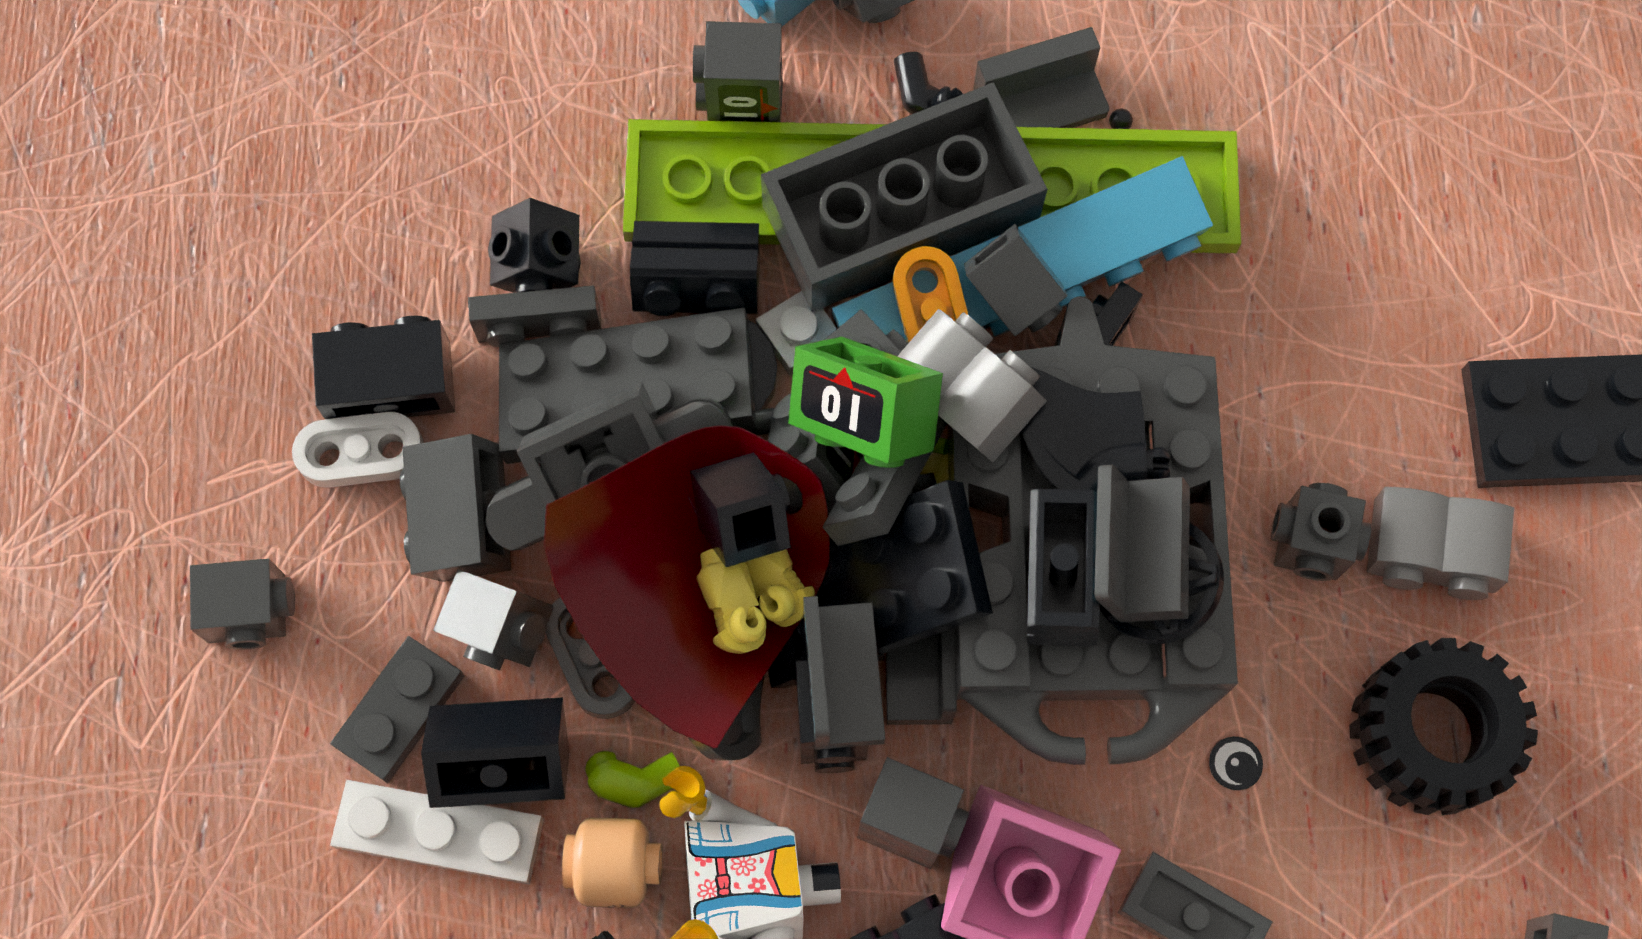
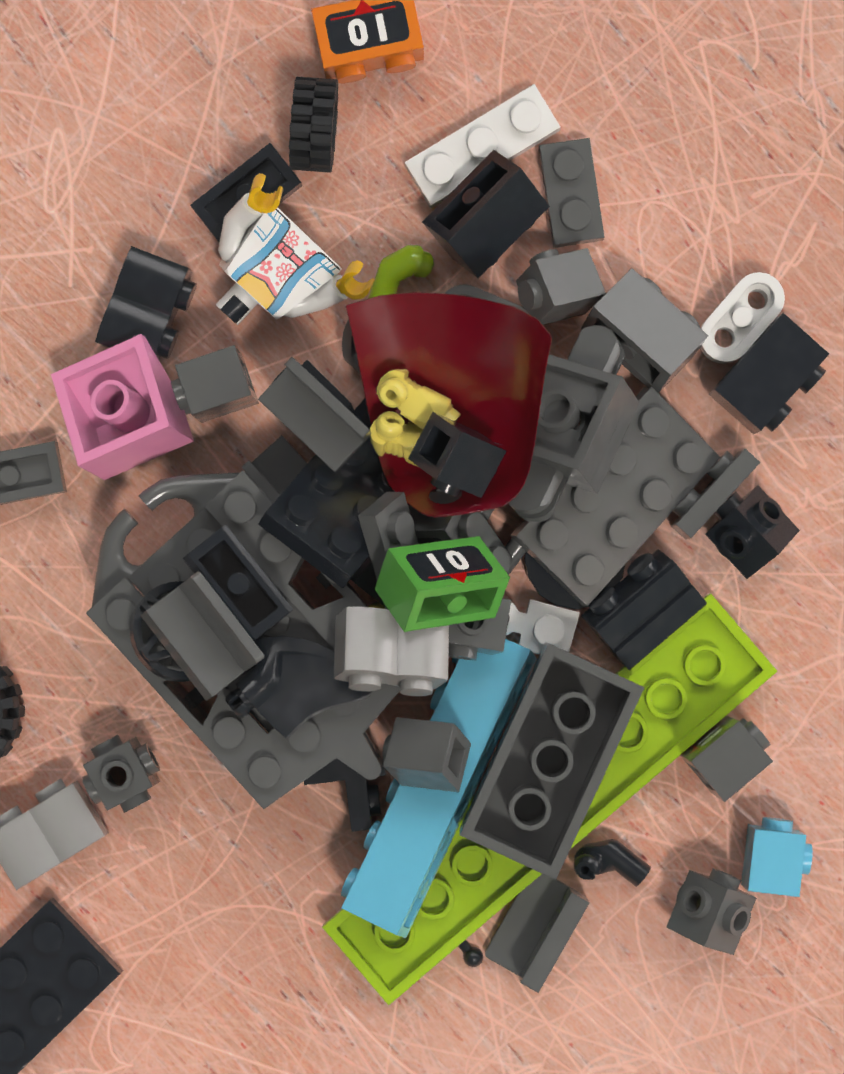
camera: 145 degrees right, 15 degrees up
(240, 602) = (718, 167): dark grey brick -> none
(611, 862) = (364, 213): light nougat head -> none
(918, 307) = (465, 699): light orange plate -> none
(1236, 763) = (61, 592): black sticker -> none

